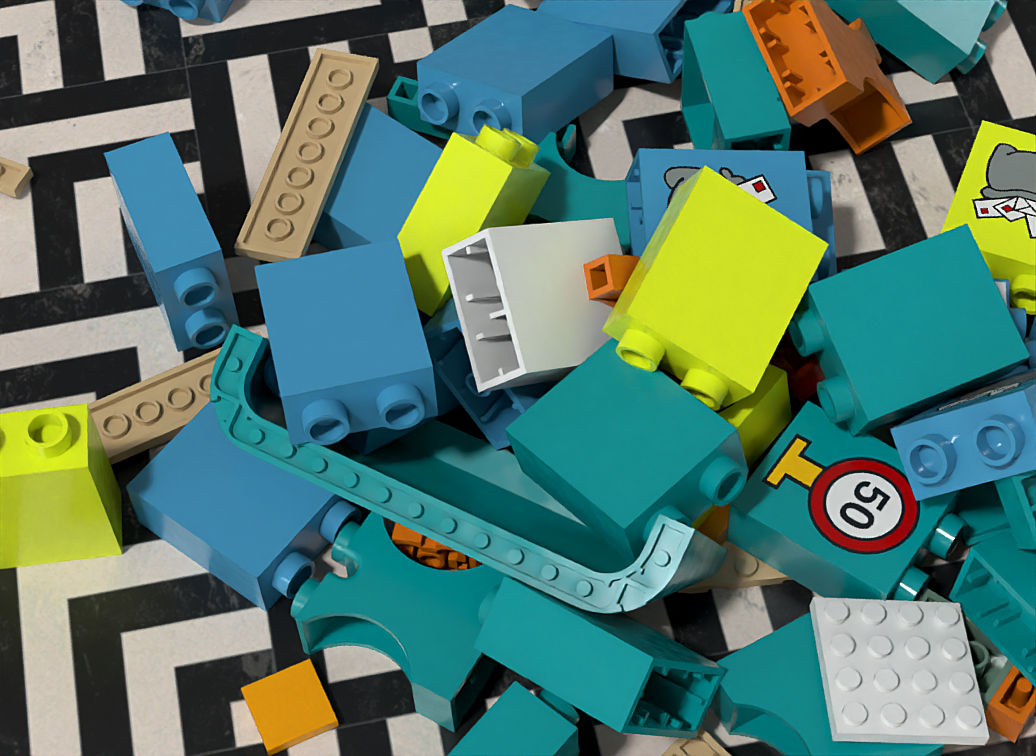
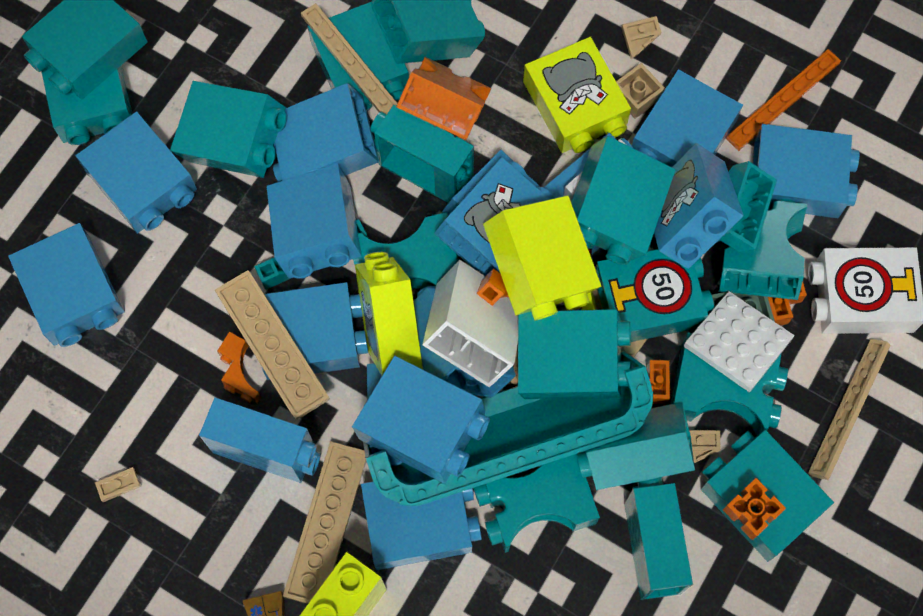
camera: 50 degrees left, 15 degrees up
(246, 172) = (232, 352): none -> orange arch
(289, 707) = (527, 579): light orange tile -> none
(718, 633) = (660, 380): none -> orange brick

